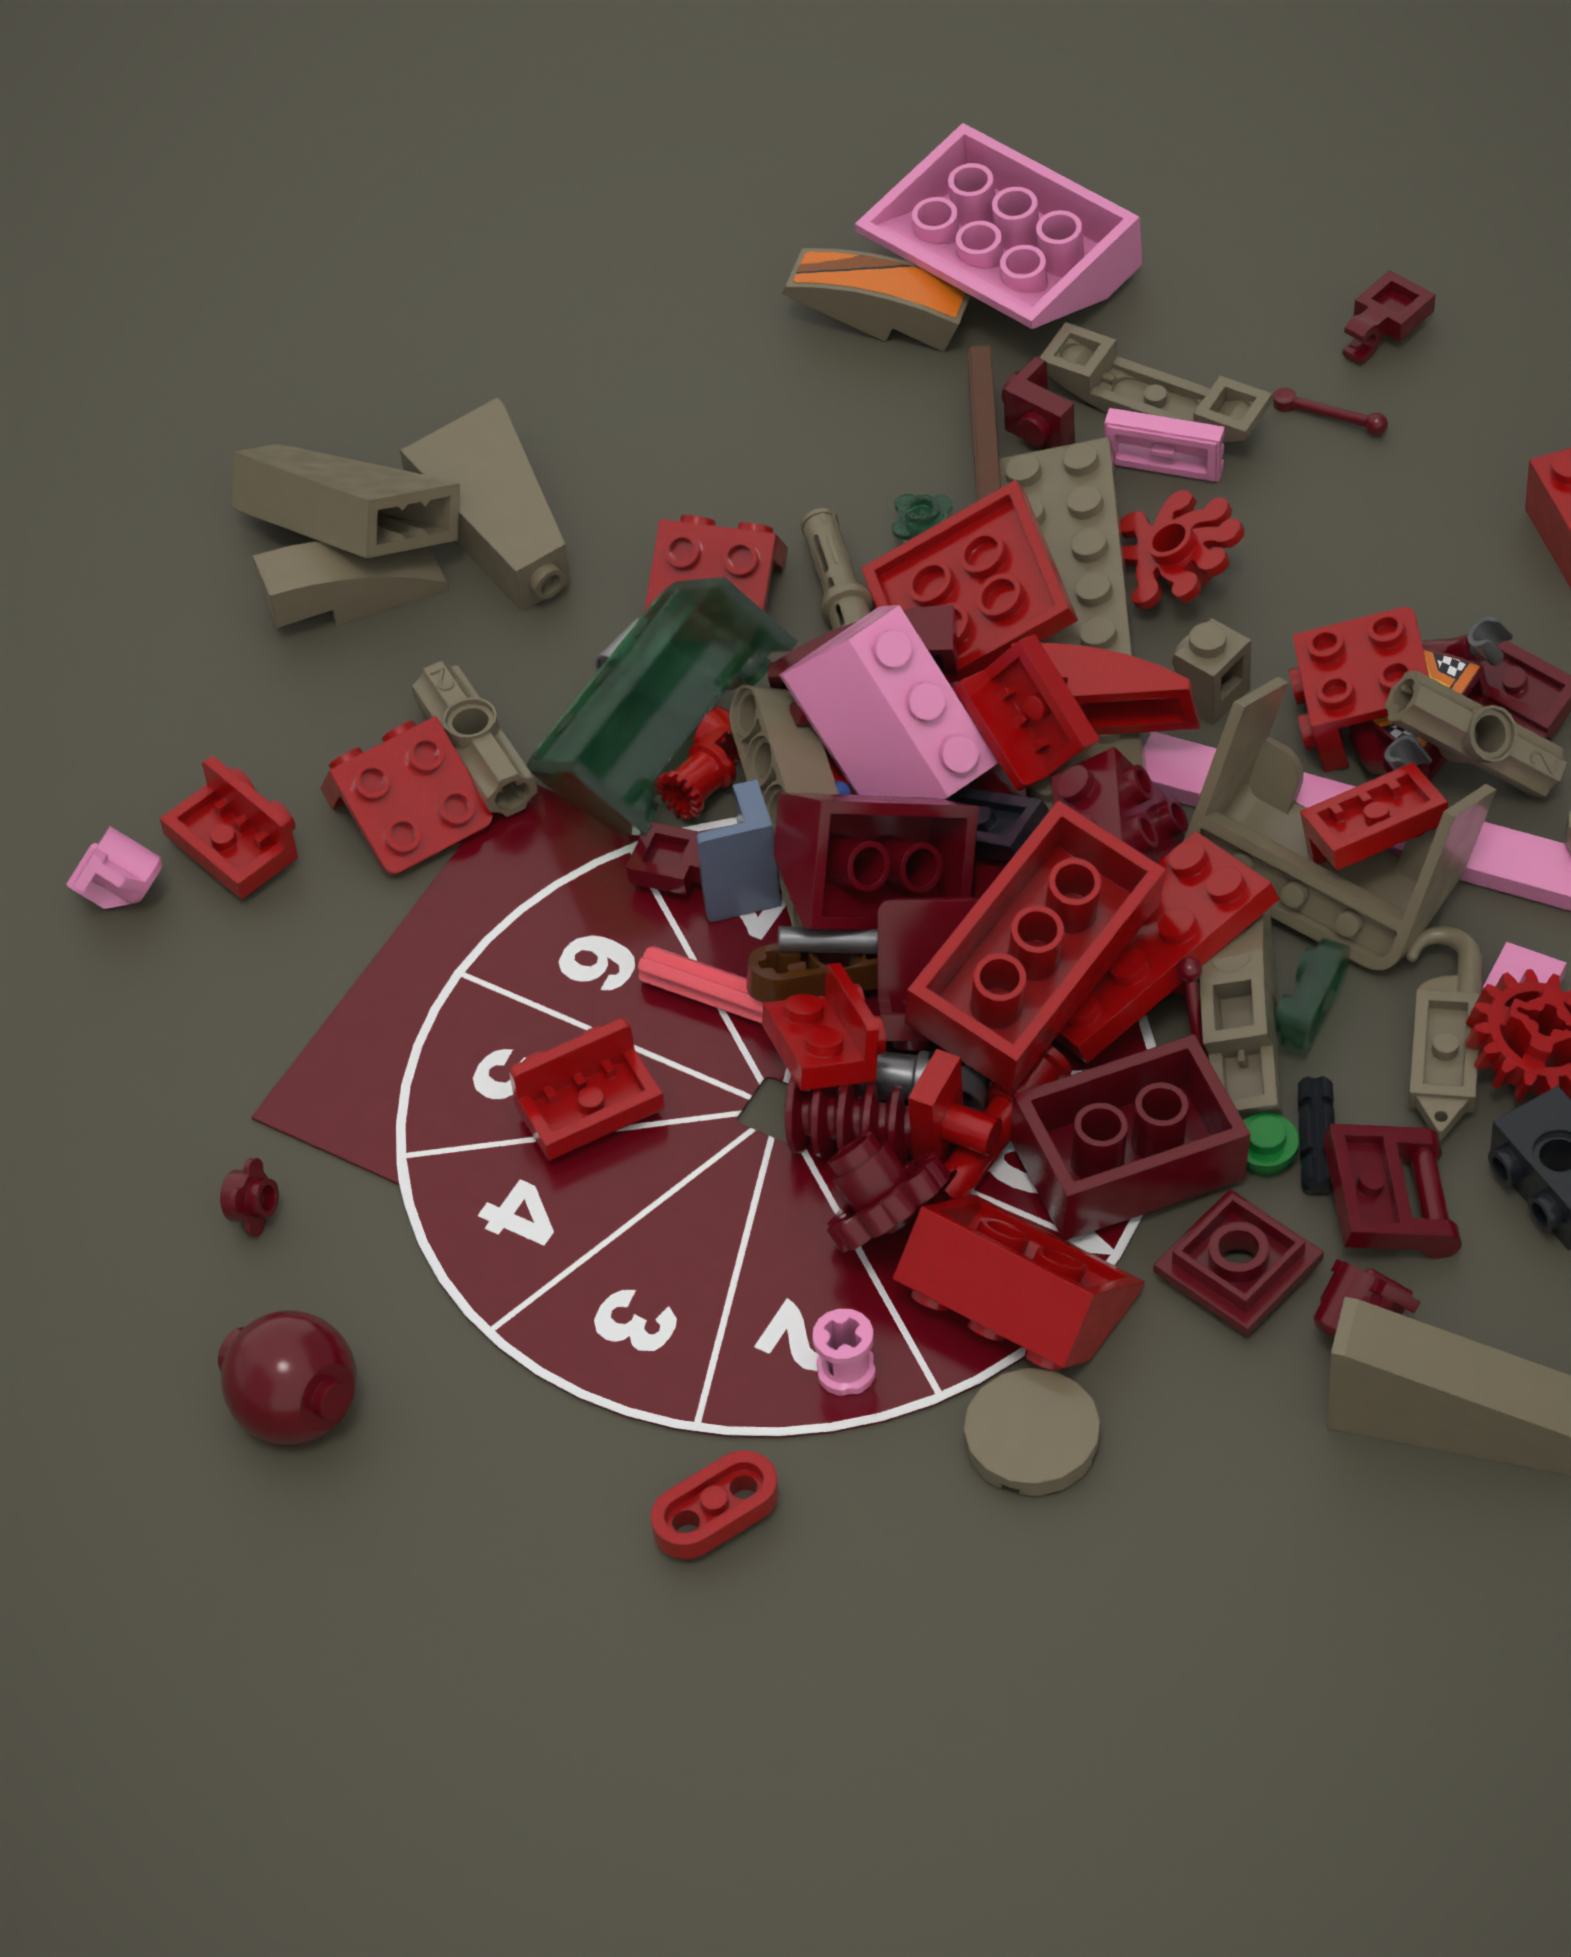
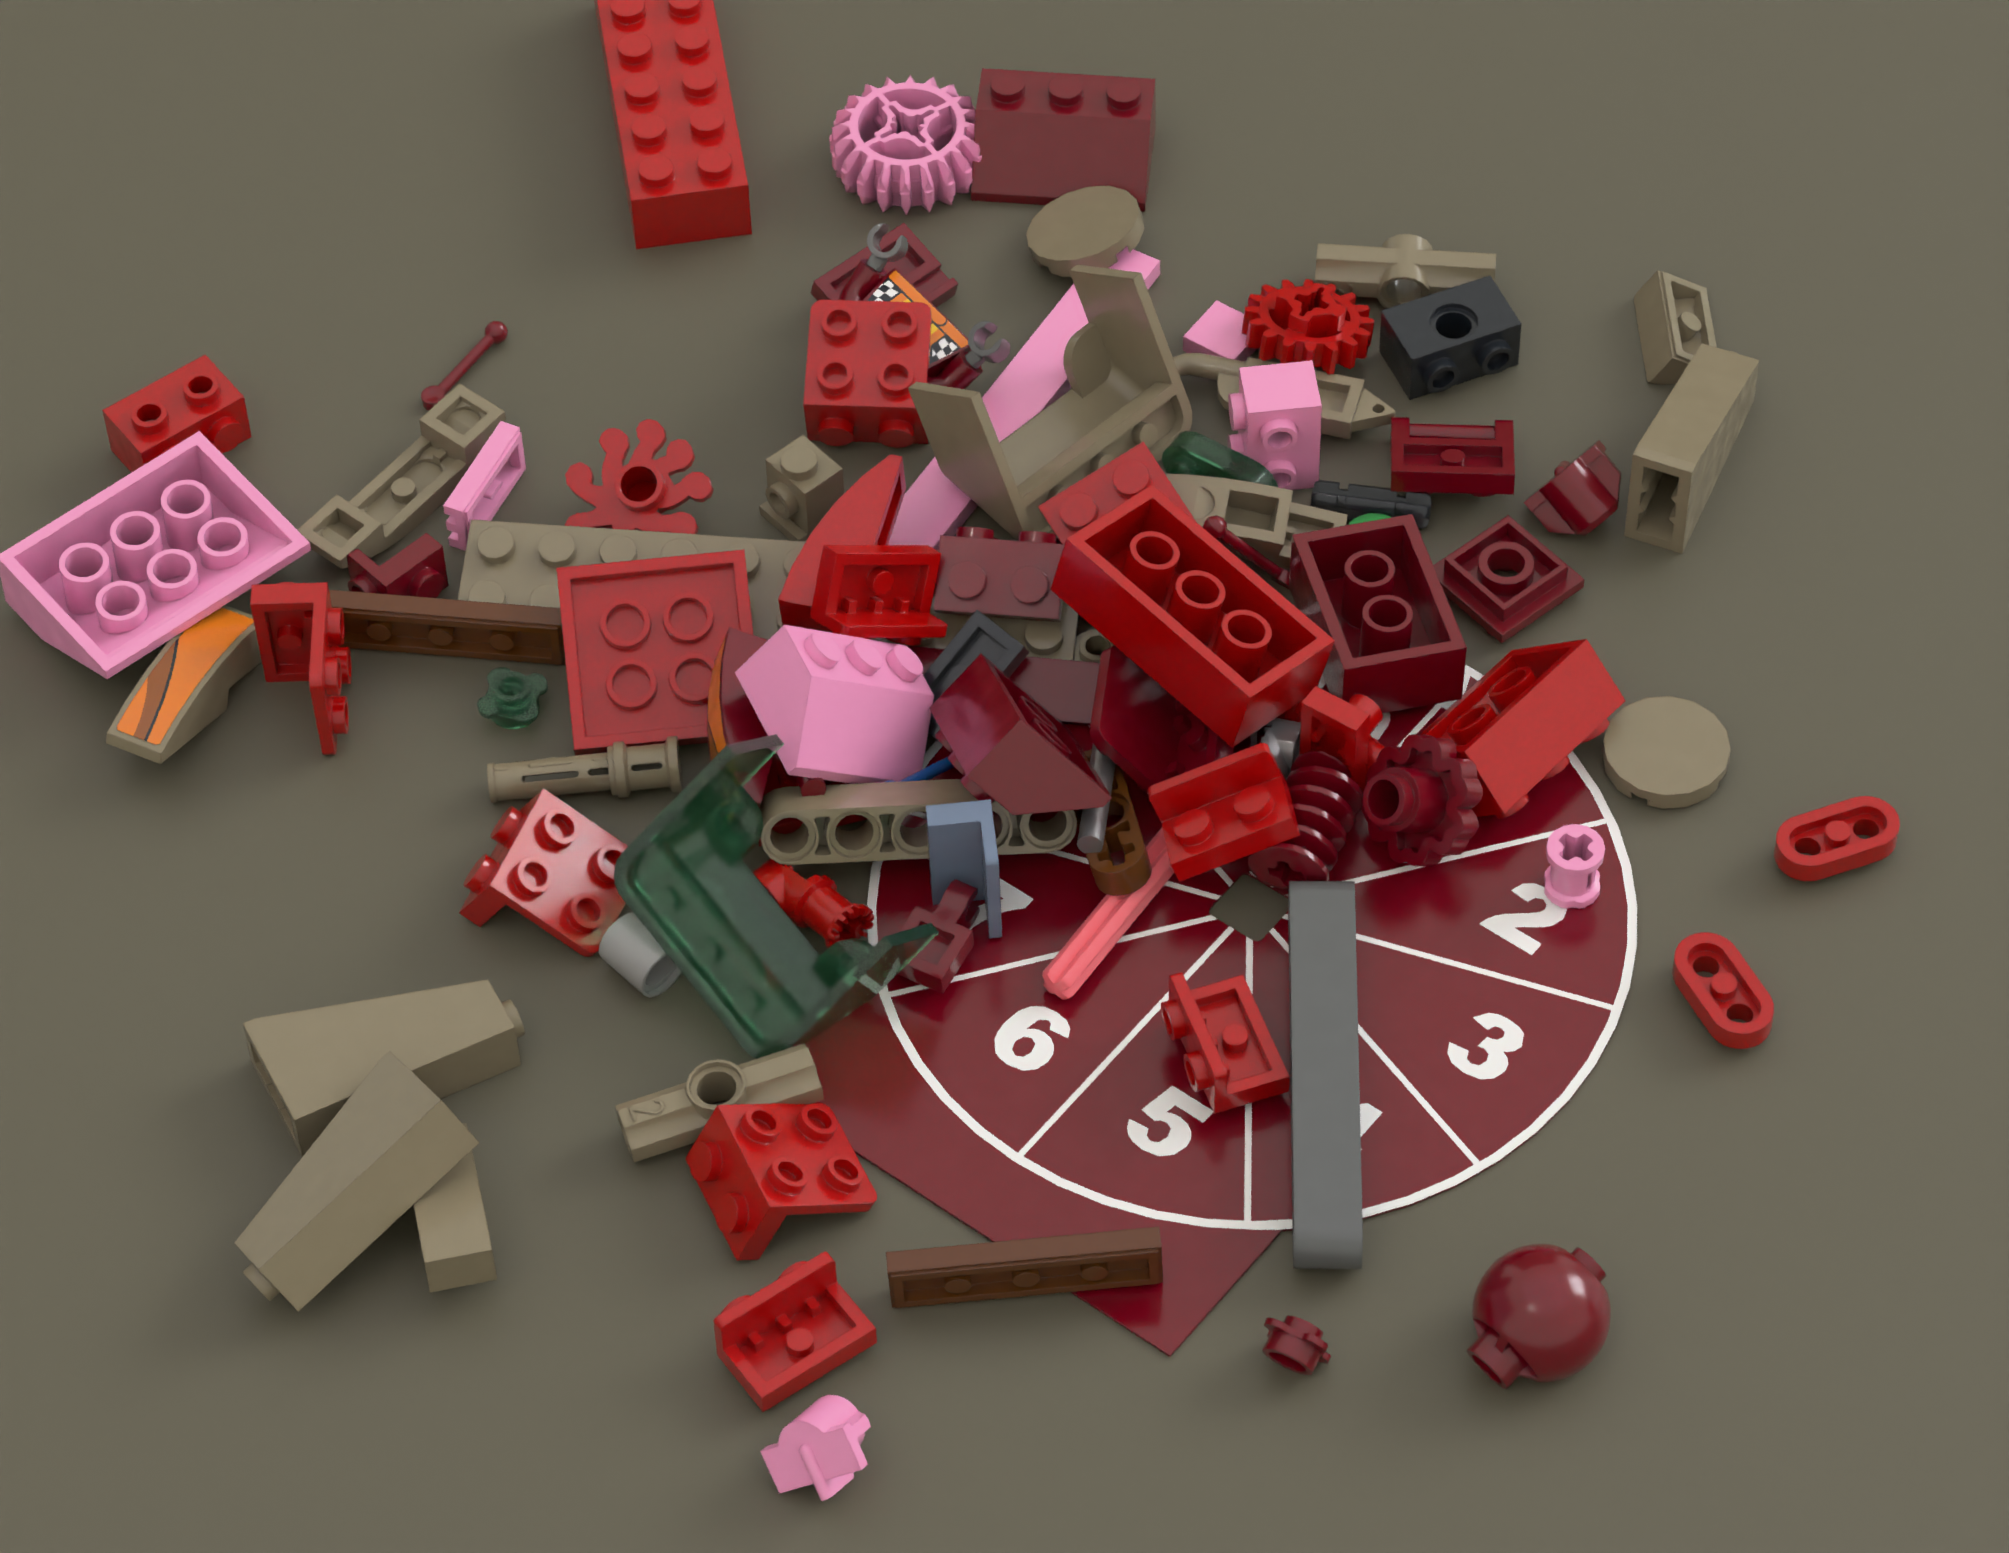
camera: 85 degrees left, 0 degrees up
(312, 982) = (1025, 1267): none -> reddish brown tile
(563, 1177) = (1324, 1076): none -> dark grey beam
(901, 363) = (301, 642): none -> red bracket
(935, 1596) = (1833, 839): none -> red plate
(1192, 225) = (176, 413): none -> red brick
(1363, 1018) = (1279, 421): none -> bright pink brick
(1372, 817) = (1061, 371): red bracket -> none
(1386, 308) = (354, 290): dark red plate -> none
(1450, 723) = (970, 291): dark tan piece -> none

